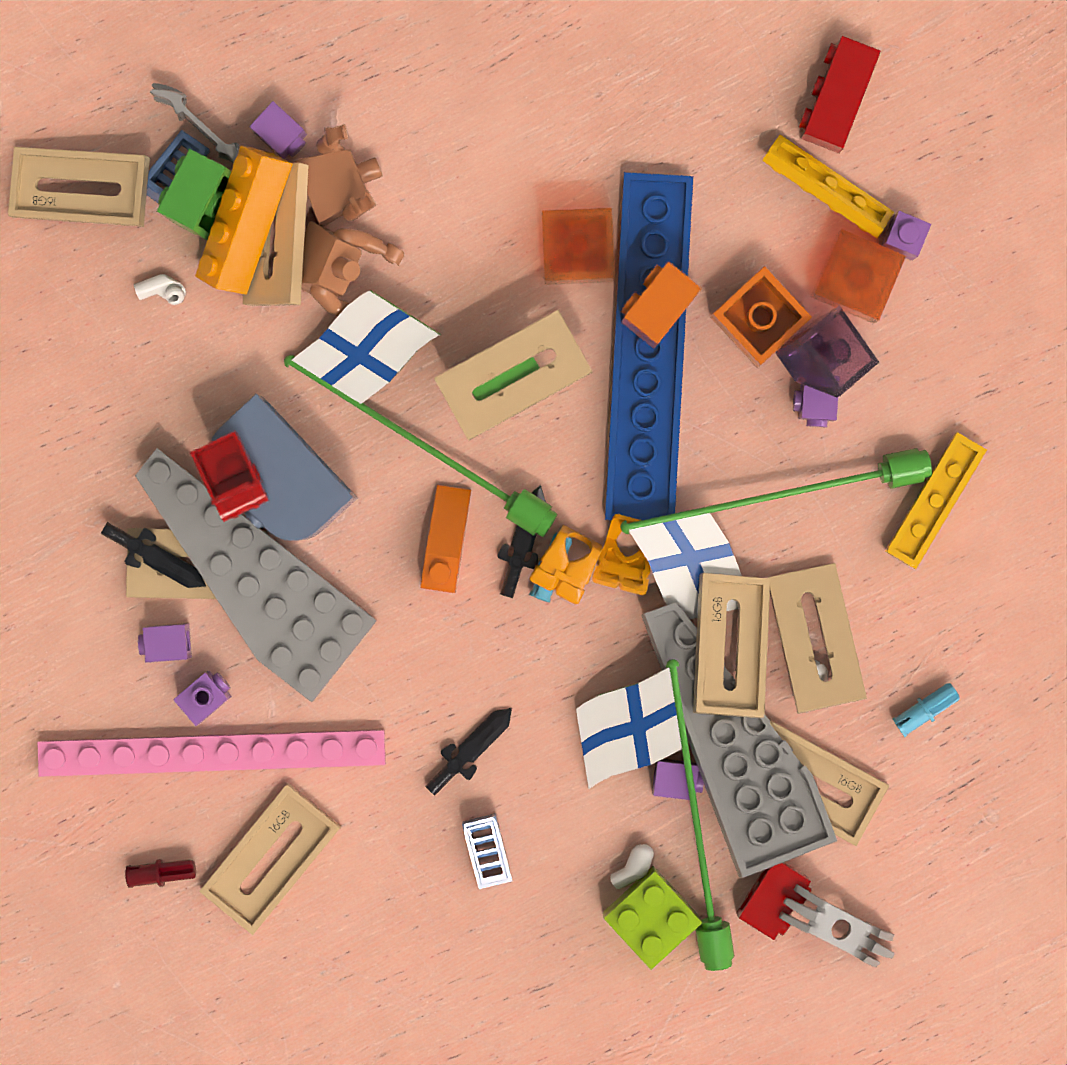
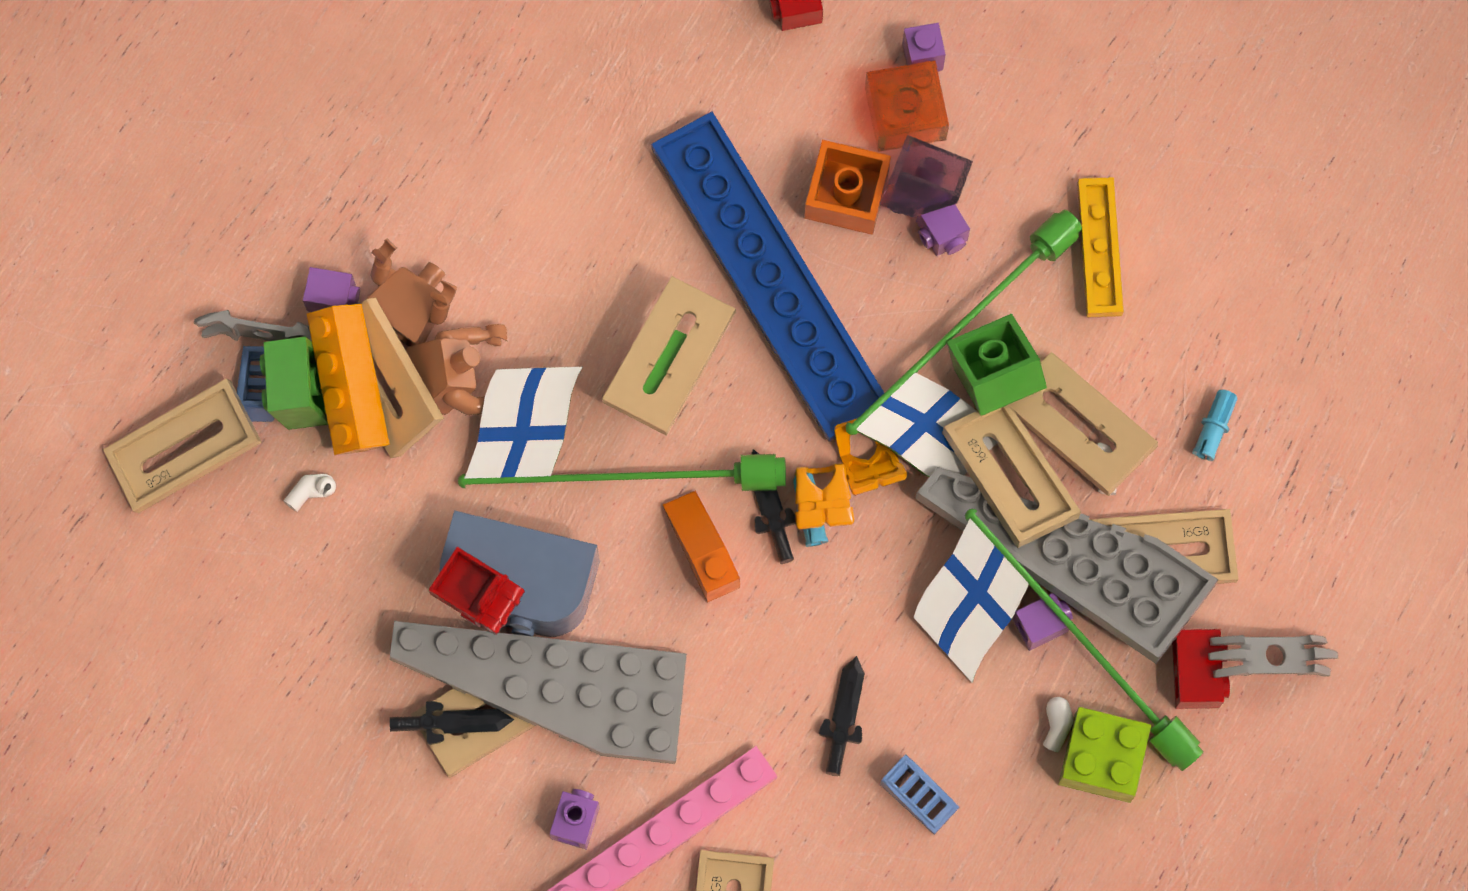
camera: 30 degrees left, 15 degrees down
(165, 643) = (509, 792): medium lavender brick -> none
(578, 246) = (652, 226): clear orange brick -> none
(661, 303) = (756, 218): orange brick -> none
(780, 549) = (996, 364): none -> bright green brick
(828, 186) = (845, 52): yellow plate -> none

